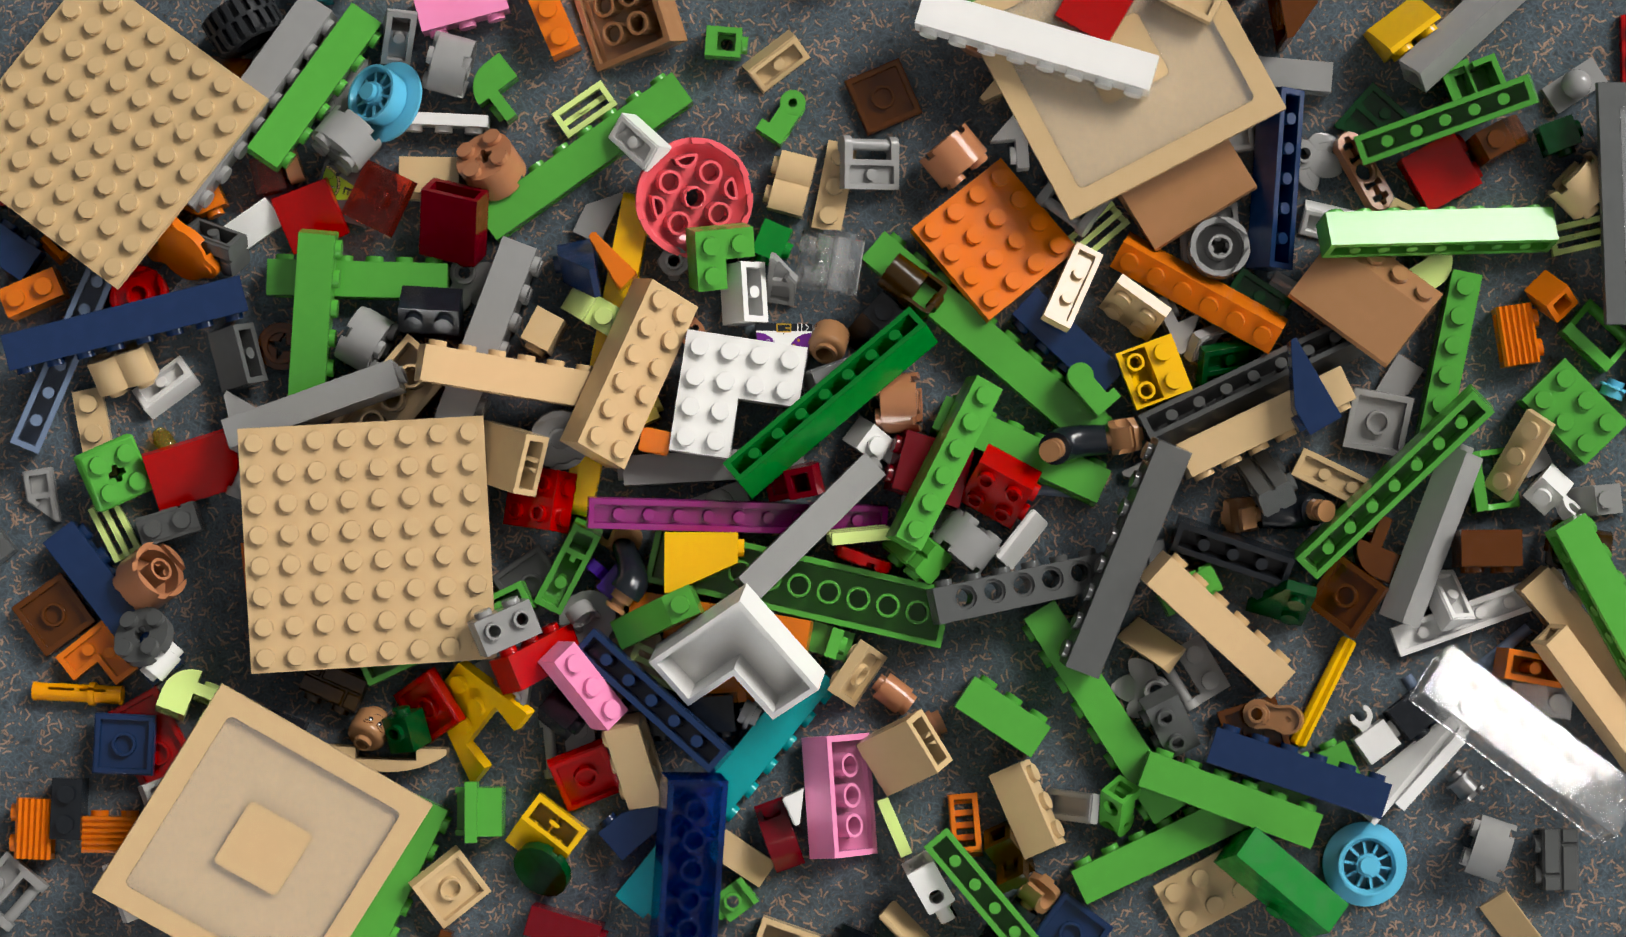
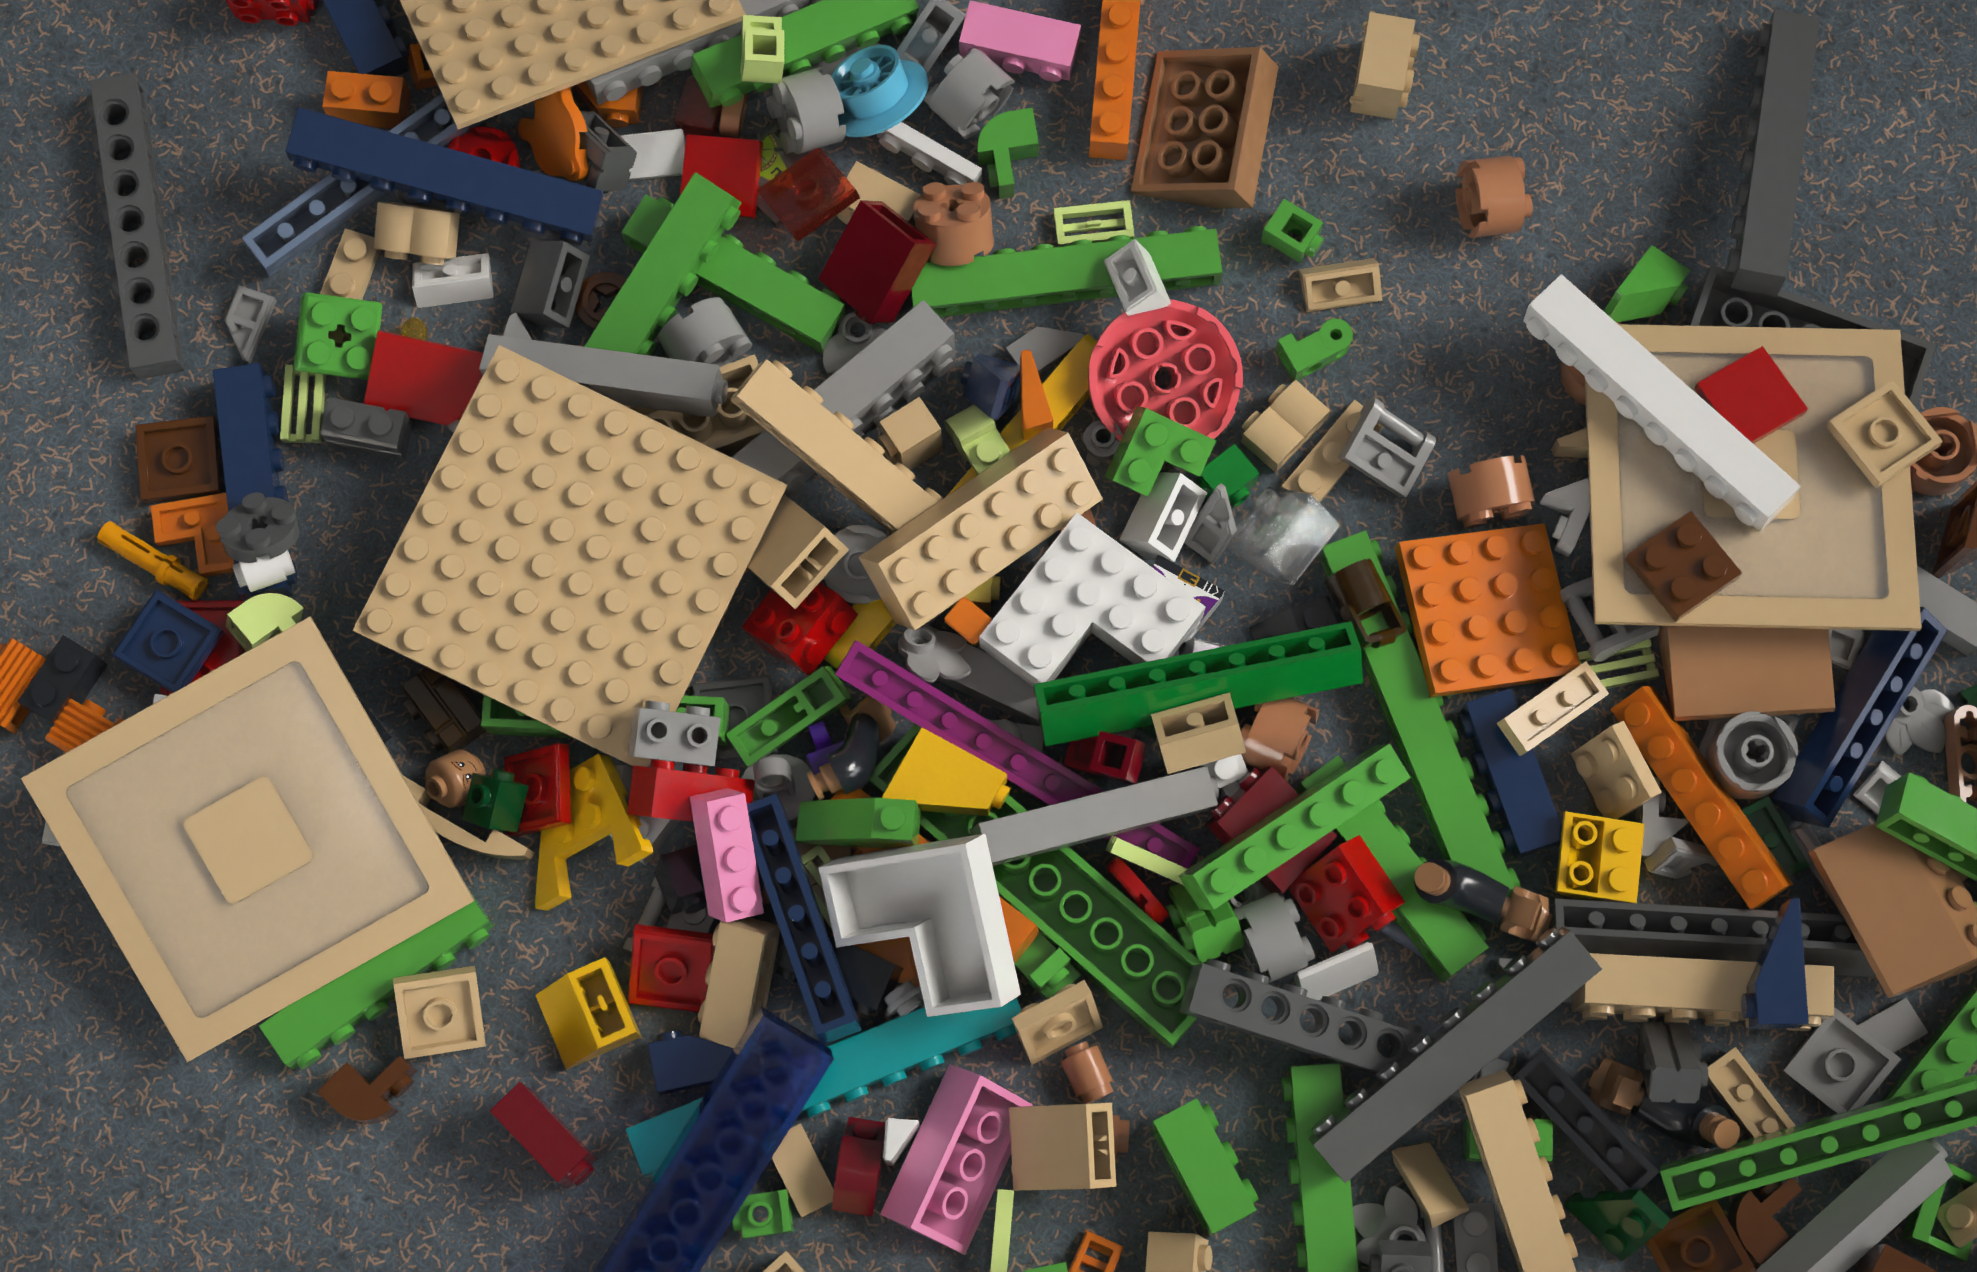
camera: 25 degrees right, 10 degrees down
(150, 576) = (309, 469): nougat brick -> none
(294, 119) = (762, 49): none -> yellowish green brick
(431, 312) = (796, 342): black slope -> none
(480, 811) = (527, 943): bright green plate -> none
(542, 869) = (558, 1051): dark green tile -> none
(644, 476) = (933, 654): none -> light grey plate
(828, 341) = (1233, 620): medium nougat head -> none
(848, 435) = (1198, 733): none -> tan brick
(883, 97) = (1442, 386): reddish brown tile -> none
(1091, 393) = (1512, 836): bright green leg -> none
(1109, 150) = (1683, 566): none -> reddish brown plate
(1222, 358) = (1691, 886): dark green wing -> none

